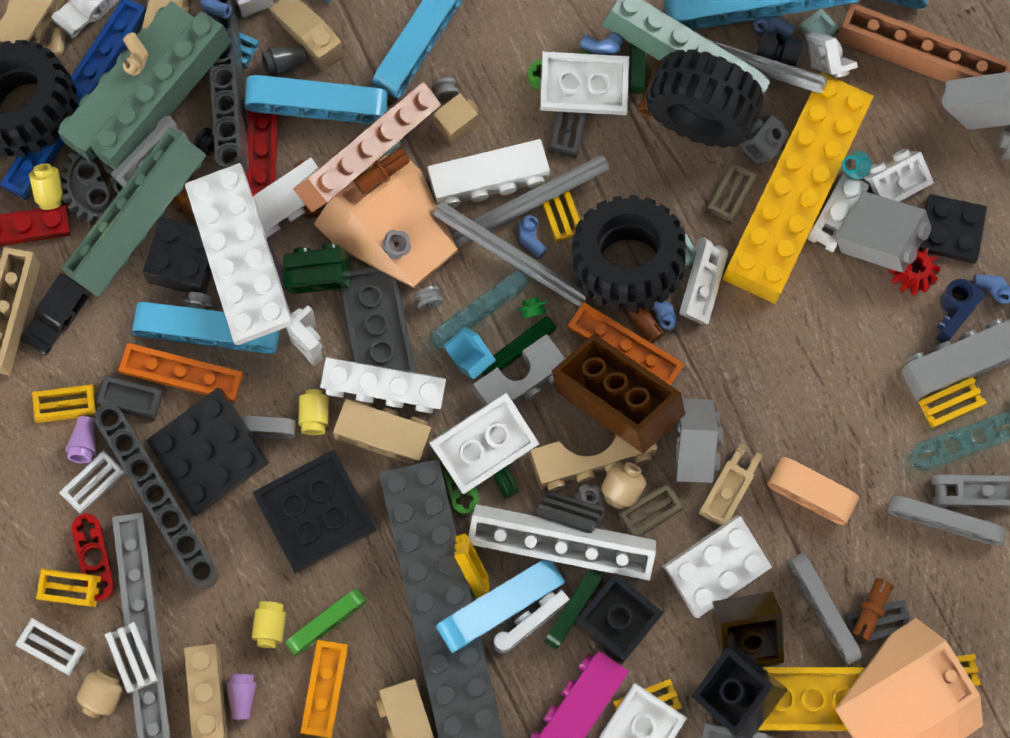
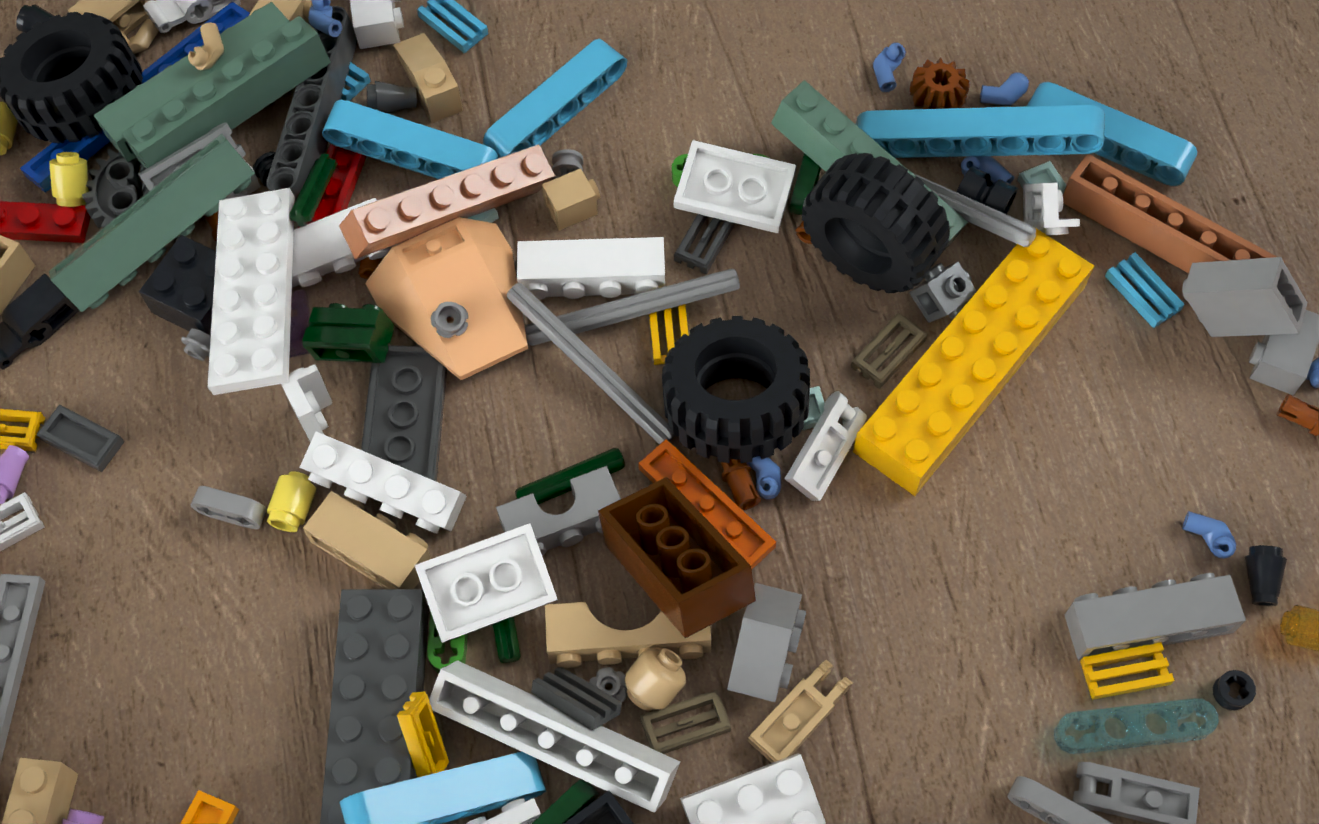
camera: 20 degrees right, 10 degrees down
(146, 485) = (73, 575): dark grey beam -> none
(179, 371) = (149, 421): orange plate -> none
(194, 327) = (186, 373): medium azure beam -> none
(207, 451) = (145, 520): black plate -> none
(255, 158) = (313, 190): none -> dark green axle
(268, 624) = (145, 755): light yellow brick -> none
(314, 511) = (252, 625): black plate -> none
(326, 622) = (218, 769): bright green beam -> none
(381, 171) = (455, 230): dark orange axle -> none
(428, 298) = (476, 396): light grey bush -> none
(469, 353) = (504, 469): medium azure panel -> none
(480, 308) = (533, 422): clear light blue beam -> none
(528, 236) = (621, 349): medium blue arm -> none
(532, 307) = (601, 433): green plate -> none
(604, 47) = (772, 149): medium blue arm -> none
(813, 491) = (911, 745): light nougat beam -> none
(836, 211) = (1022, 399): white plate -> none
(863, 165) = (1059, 348): teal cone -> none
(883, 231) = (1074, 430): light grey brick -> none
(900, 176) = (1108, 374): white bracket -> none
(922, 278) = (1122, 488): red gear -> none
(924, 100) = (1149, 287): none -> medium azure tile
(954, 228) = (1168, 450): black plate -> none
(957, 310) = (1157, 552): dark blue plate -> none

